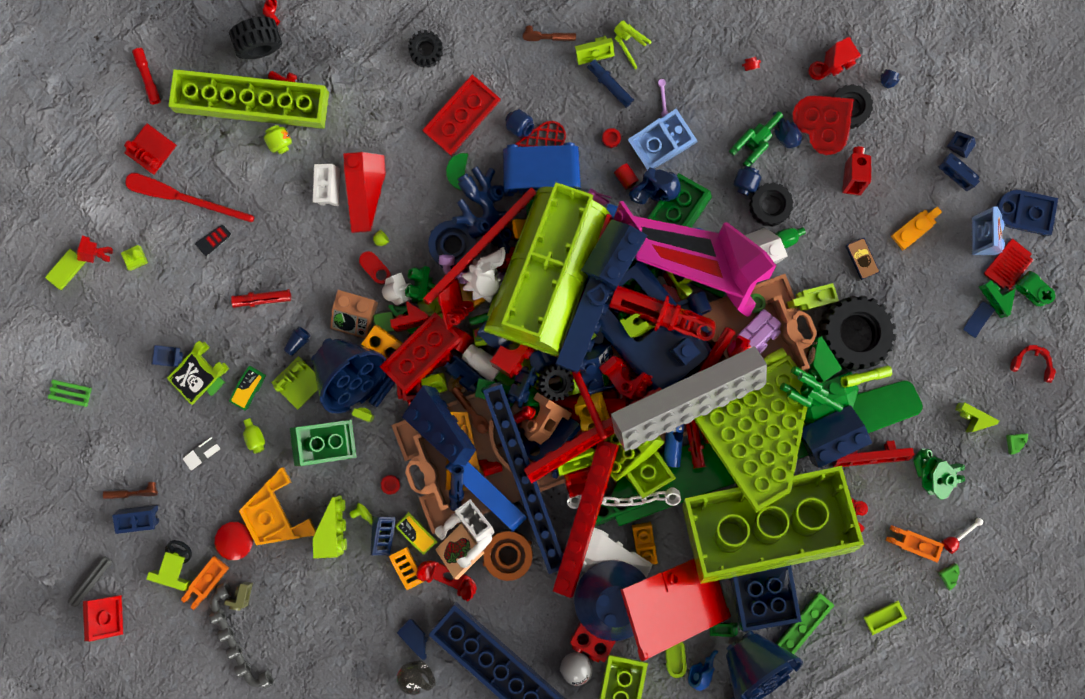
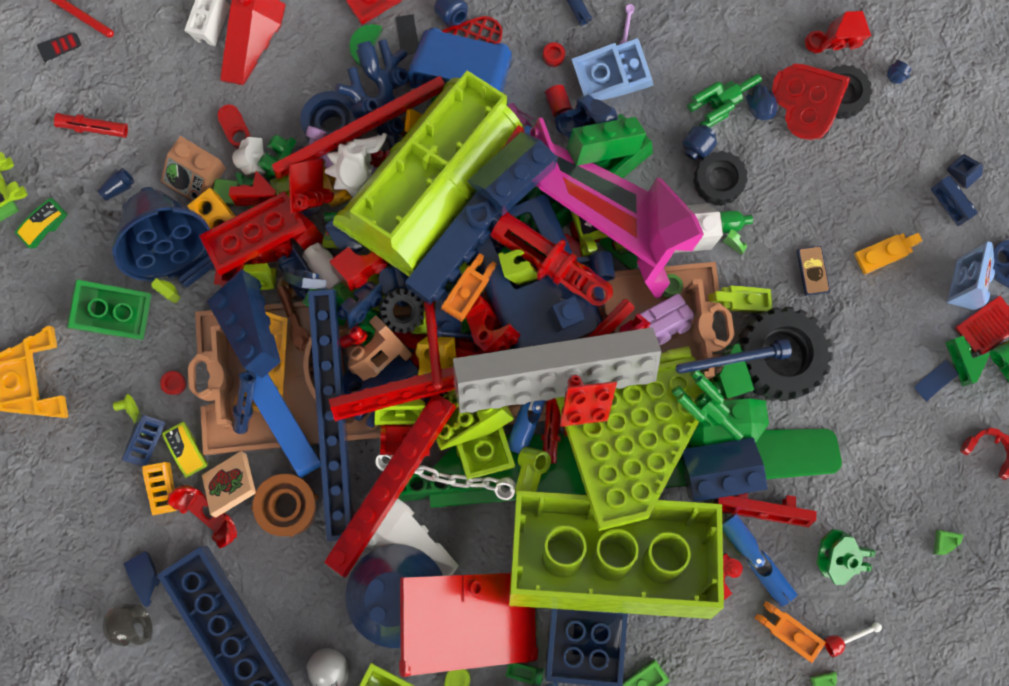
camera: 10 degrees right, 5 degrees down
(253, 437) = (29, 281): lime plant -> none
(296, 383) = (98, 232): lime hinge -> none
(328, 538) = (80, 416): lime slope -> none
(380, 238) = (251, 95): lime hinge -> none
(472, 379) = (304, 279): none -> dark blue hinge
(475, 524) = (255, 457): white torso -> none
(489, 152) = (407, 33): none -> black sticker
(489, 468) = (295, 393): red tile -> none
(589, 645) = (351, 647): red brick -> none
(603, 354) = (467, 289): none -> orange hinge
(645, 542) = (458, 537): light orange slope -> none
(675, 203) = (605, 141): none -> green brick
(688, 473) = (532, 464): none -> lime piece
(720, 419) = (586, 402): none -> red hinge
(751, 63) = (740, 13): red plate -> none
(793, 251) = (733, 241): none -> bright green tile
(854, 333) = (779, 349): none -> dark blue piece
(857, 172) = (835, 161): red torso -> none
(866, 487) = (747, 545): none -> blue piece
(875, 374) = (795, 410): lime piece -> none
(920, 459) = (822, 529): green arm -> none
(978, 419) = (907, 499): lime slope -> none

